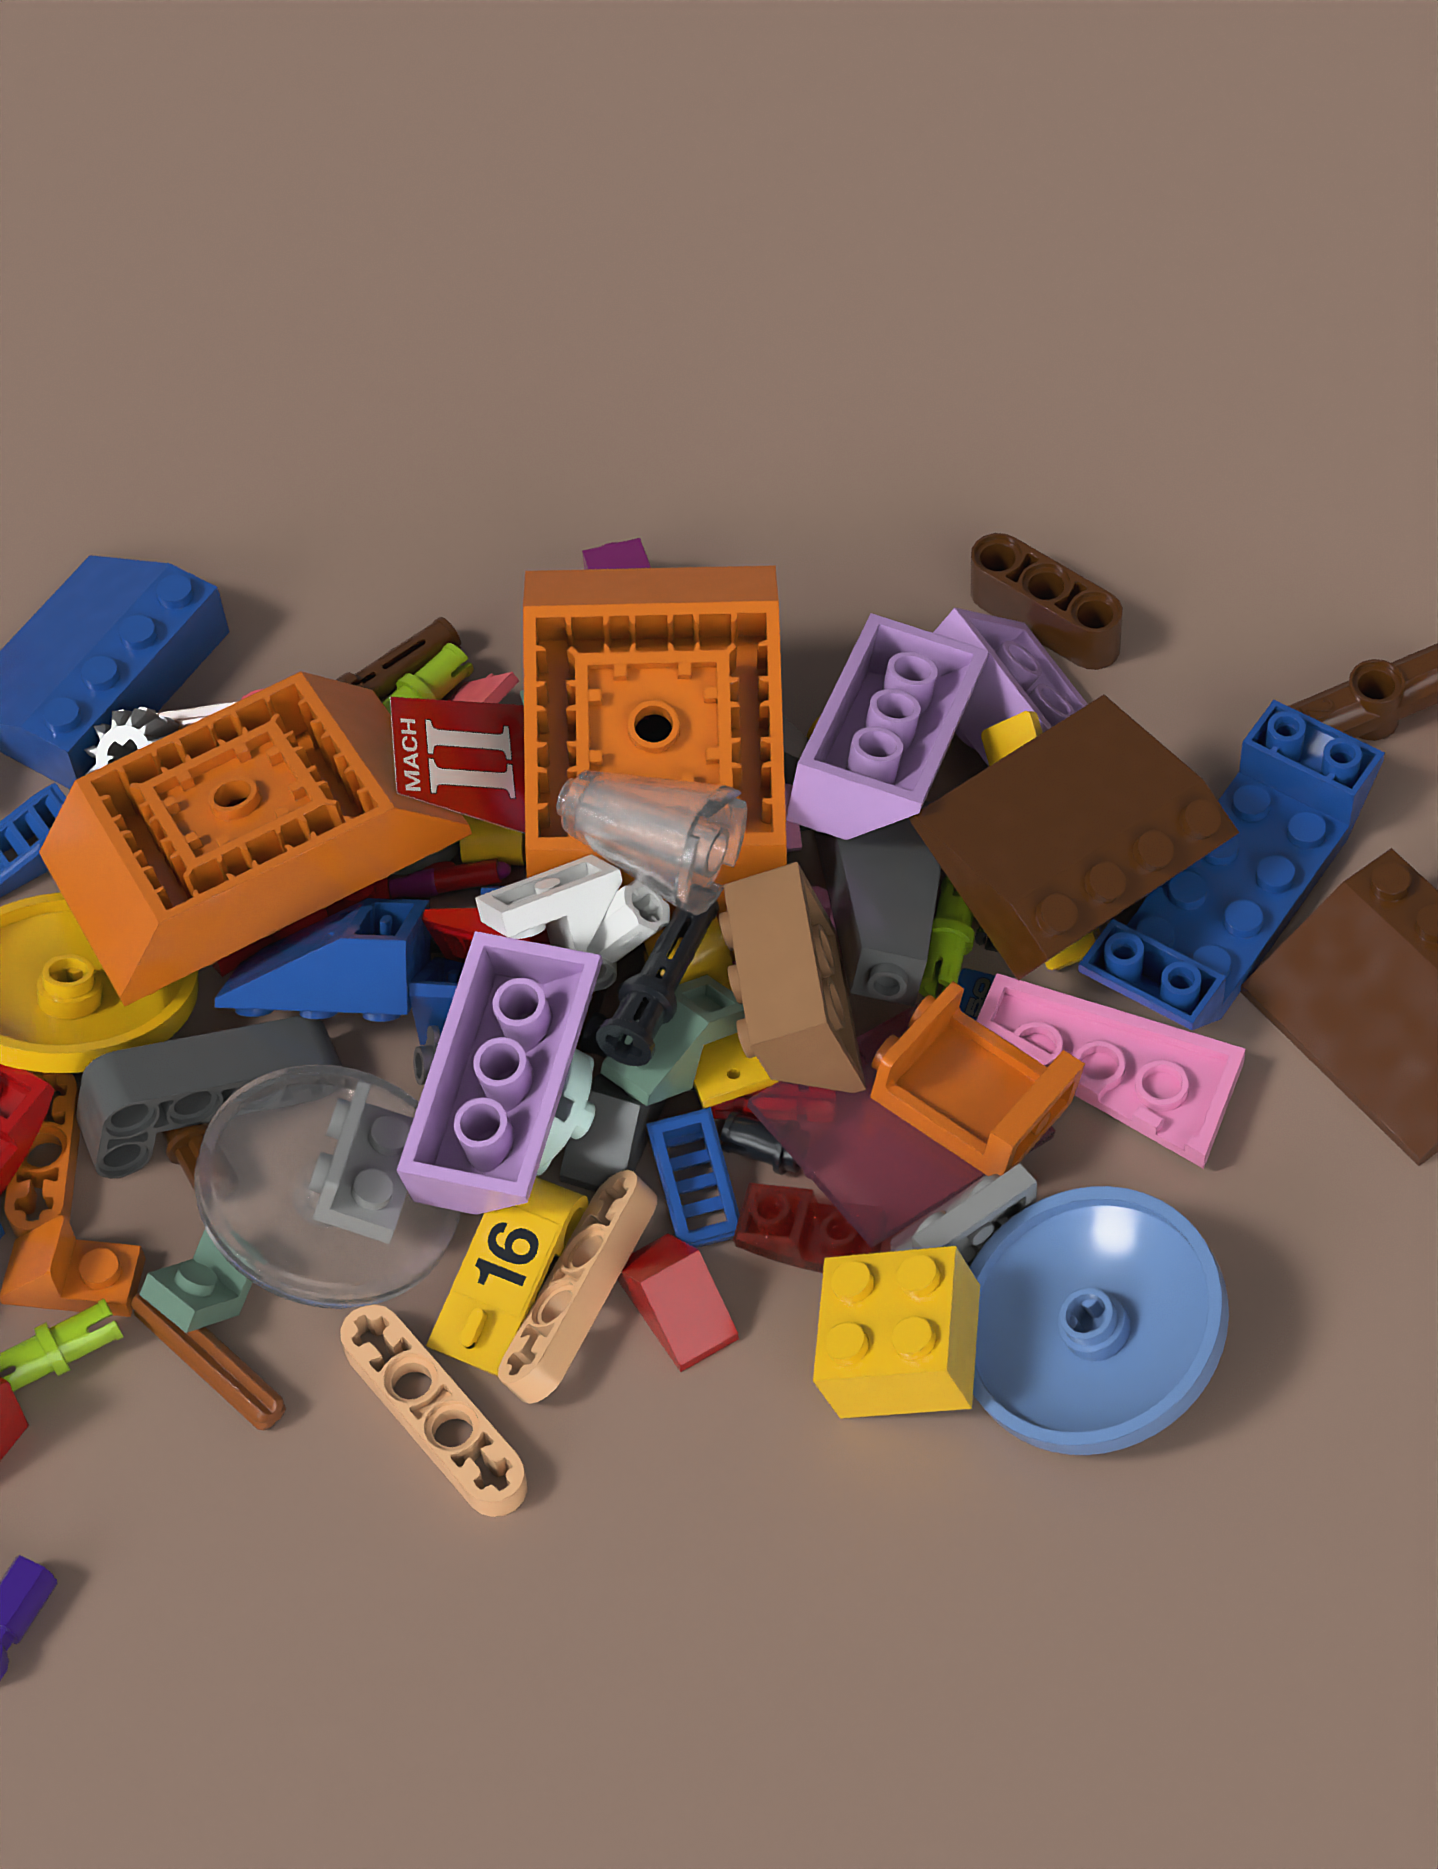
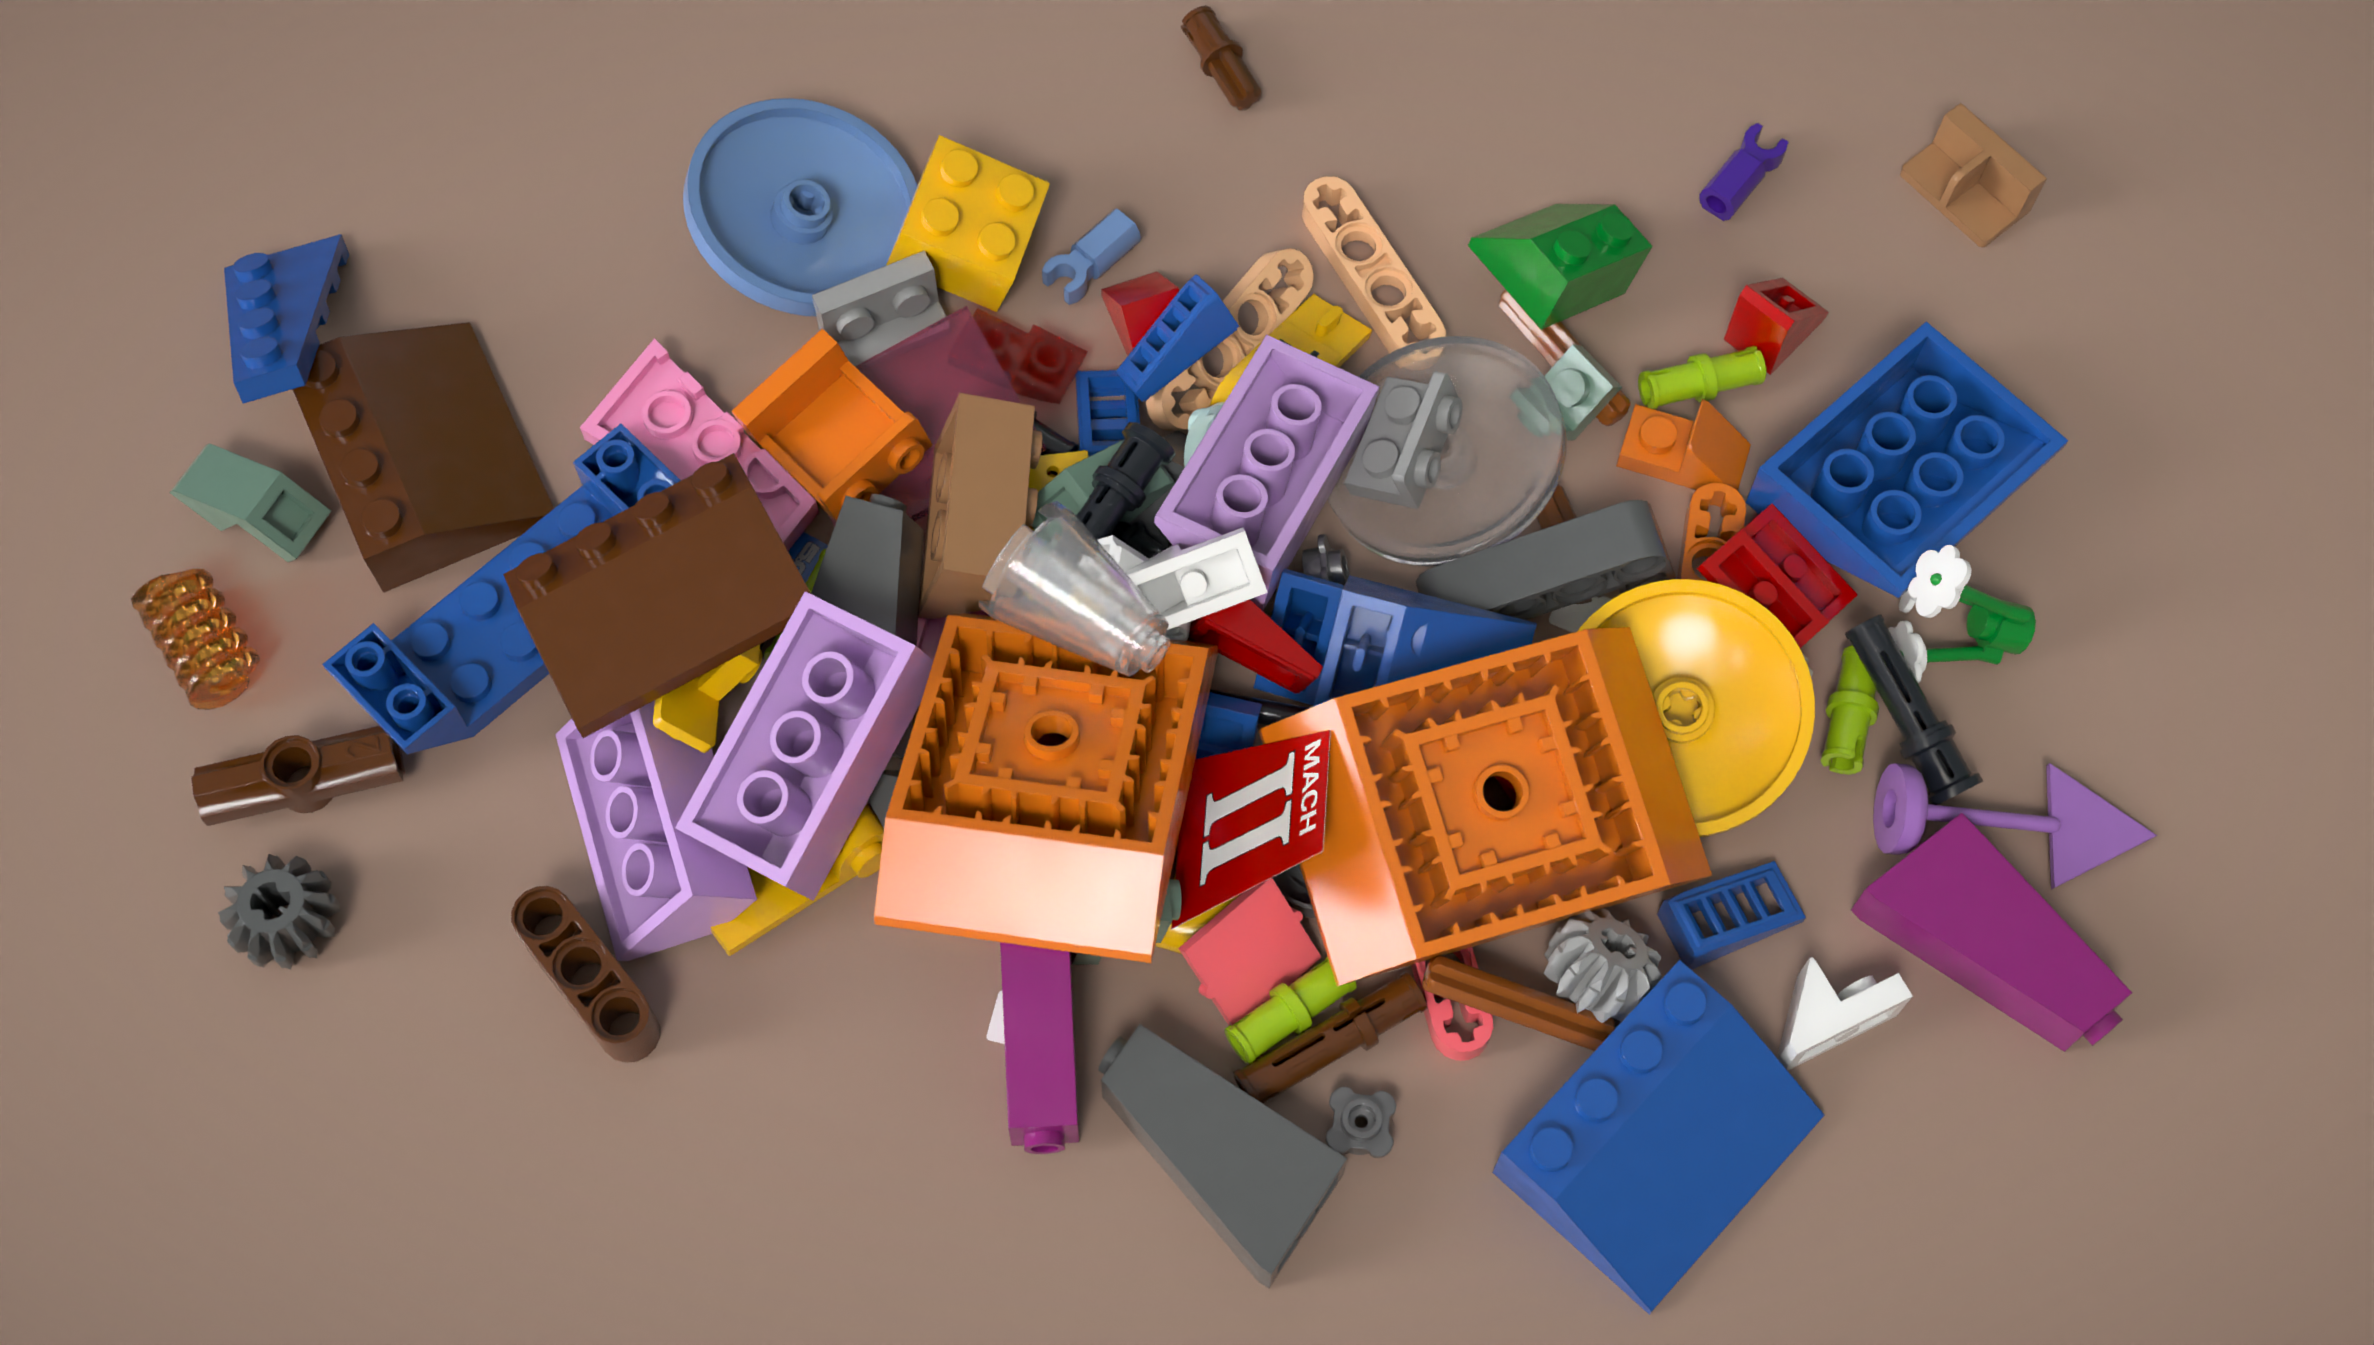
camera: 175 degrees left, 10 degrees up
(216, 1438) = (1564, 258): none -> green slope
(344, 631) = (1348, 1137): none -> flat silver plate
(437, 565) = (1226, 1151): none -> dark grey slope
(594, 1250) = (1177, 339): none -> blue slope
(655, 1646) = (1221, 57): none -> reddish brown axle
(754, 1364) = (1092, 254): none -> medium blue bar
(1336, 595) = (261, 898): none -> dark grey gear

